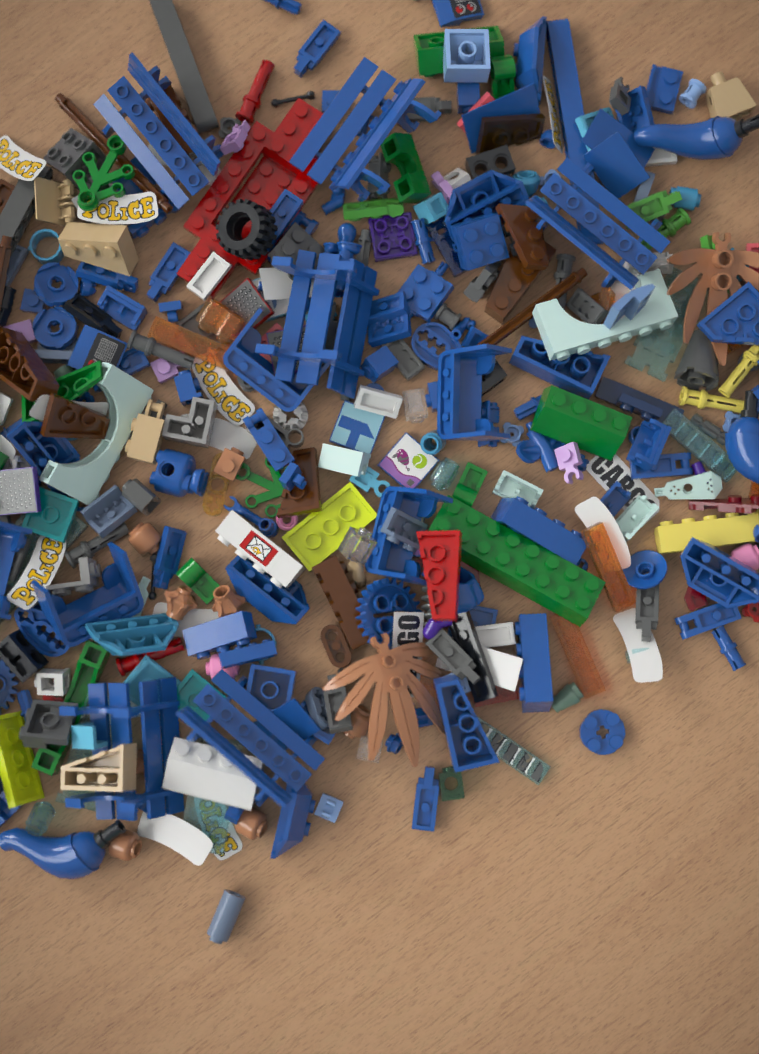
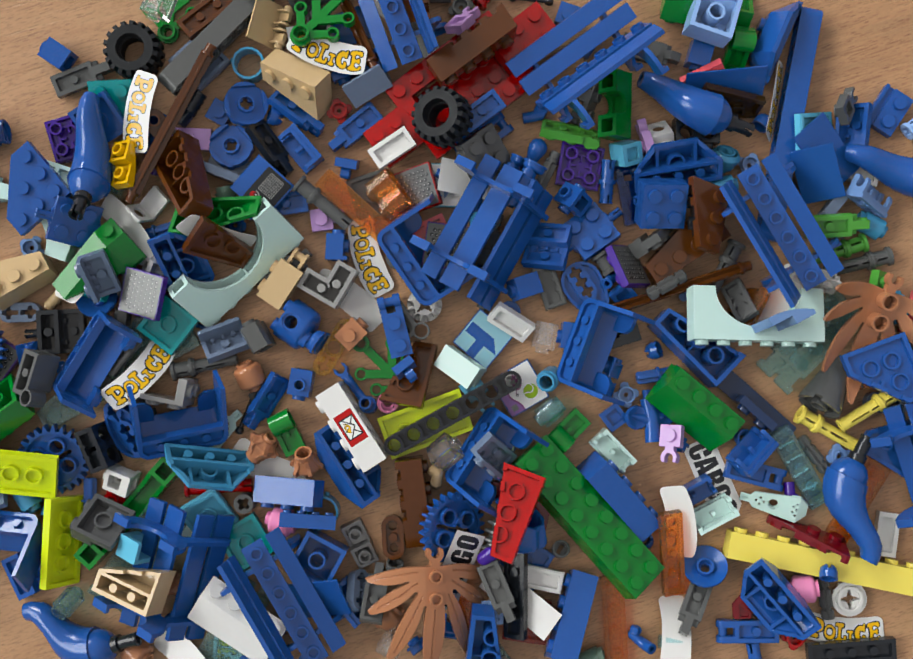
camera: 20 degrees right, 5 degrees up
(146, 255) = (336, 105): none -> red plate
(166, 227) = (367, 85): none -> sand blue panel
(173, 661) = (239, 501): none -> dark grey bush
(197, 529) = (300, 383): none -> blue brick
(253, 156) = (473, 47): none -> reddish brown wedge
(305, 663) = (359, 543): none -> flat silver slope
(356, 494) = (445, 421): none -> black beam
(396, 268) = (573, 199): none -> blue brick
(469, 312) = (627, 268): none -> tile
(478, 142) = (693, 106): none -> blue animal
(495, 601) = (565, 550): none -> dark grey hinge
(506, 458) = (612, 417): none -> blue plate
(511, 315) = (666, 284): none -> dark grey axle
(524, 383) = (654, 349): none -> blue hinge
(610, 664) = (639, 640): none -> blue arm
(671, 172) = (867, 197): none -> medium blue hinge
(696, 232) = (868, 261): none -> dark grey pin

